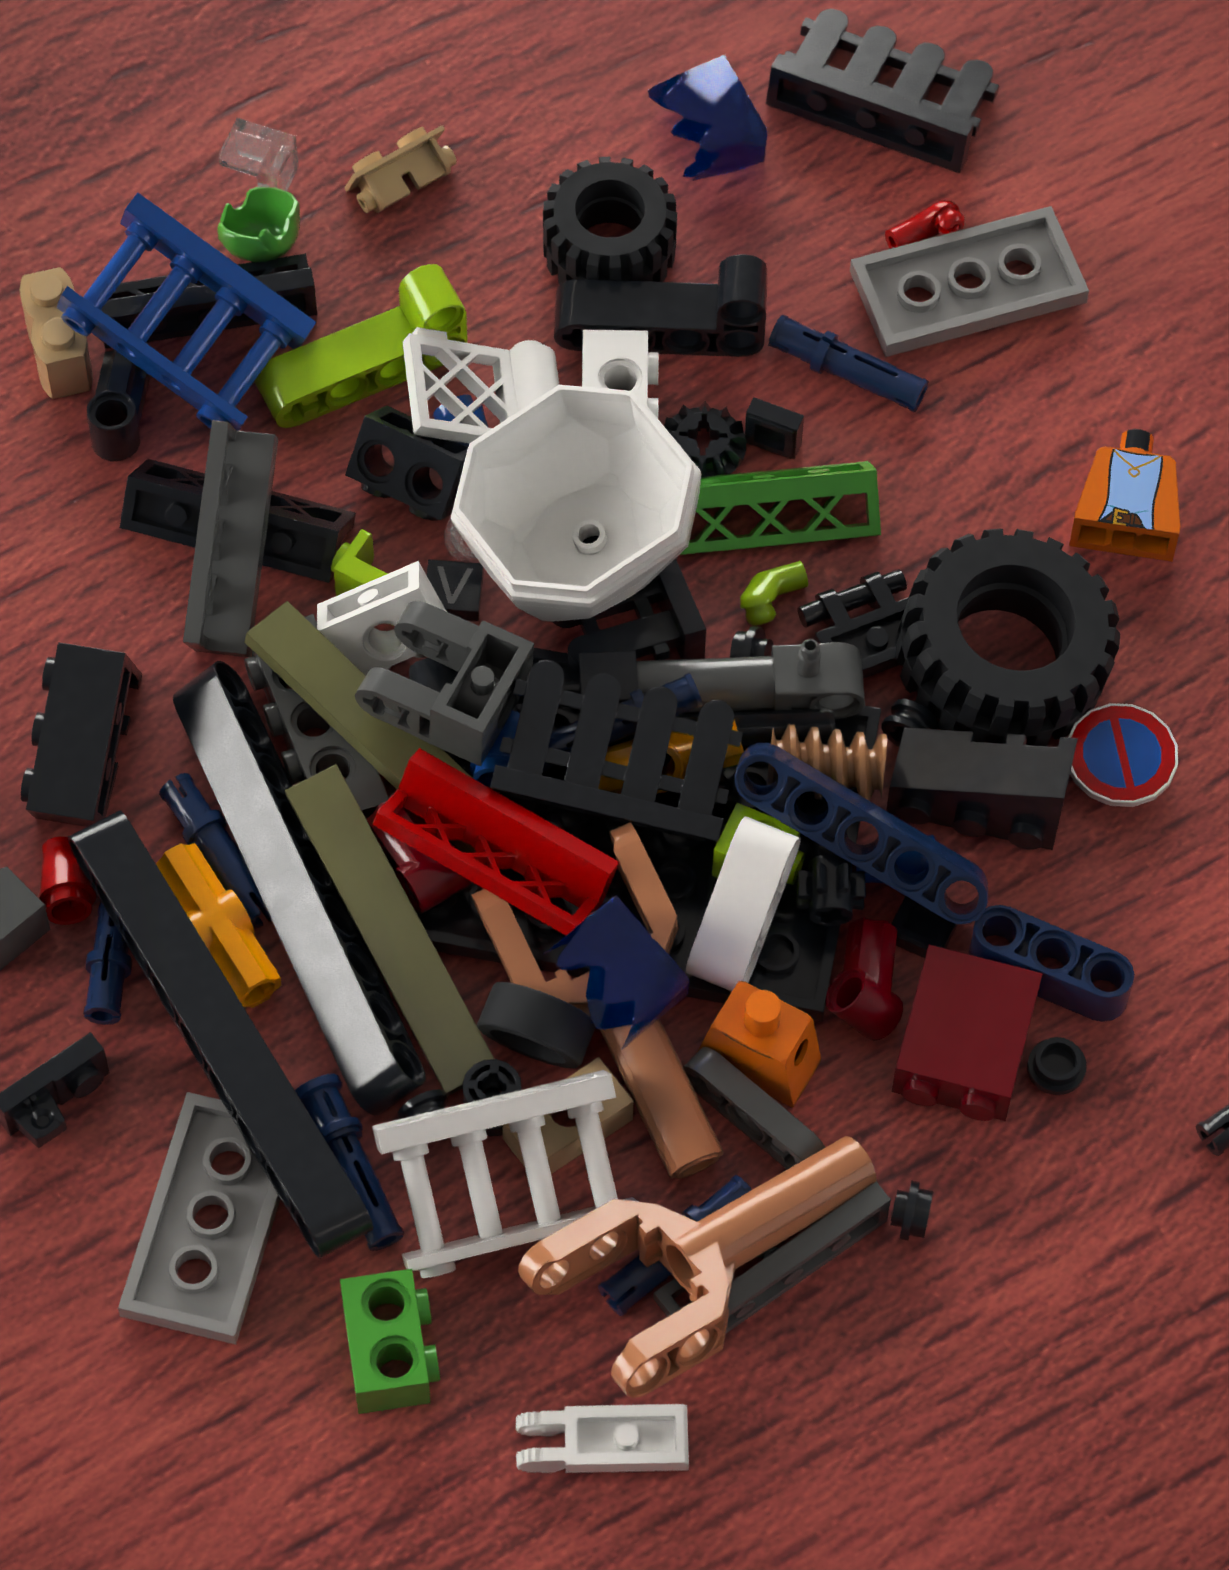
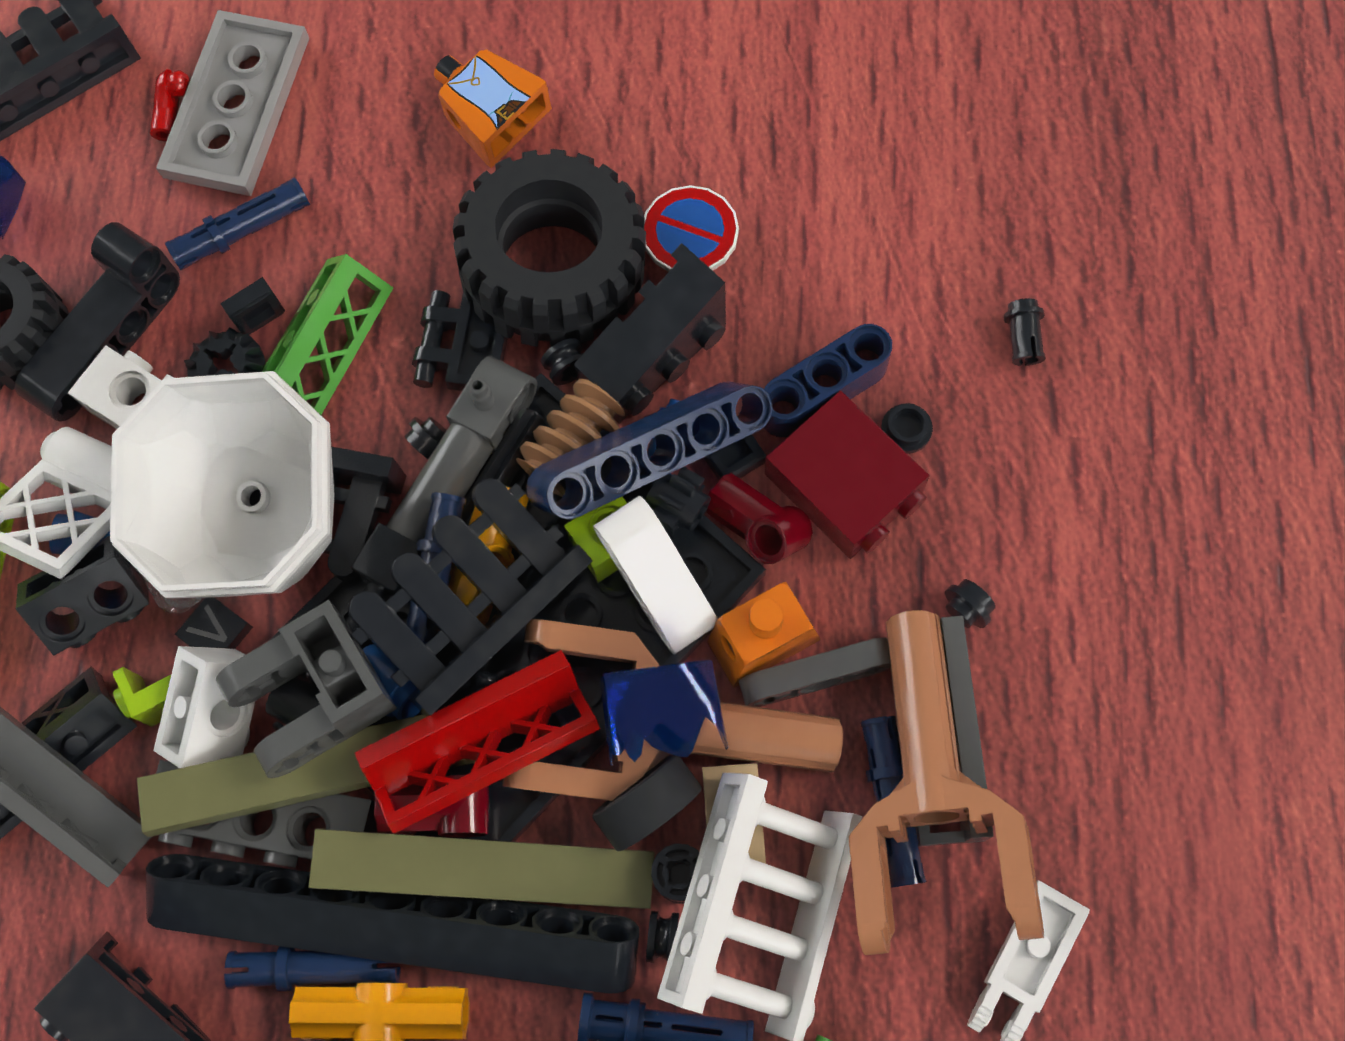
camera: 50 degrees left, 10 degrees up
(767, 586) = (379, 393): lime arm -> none

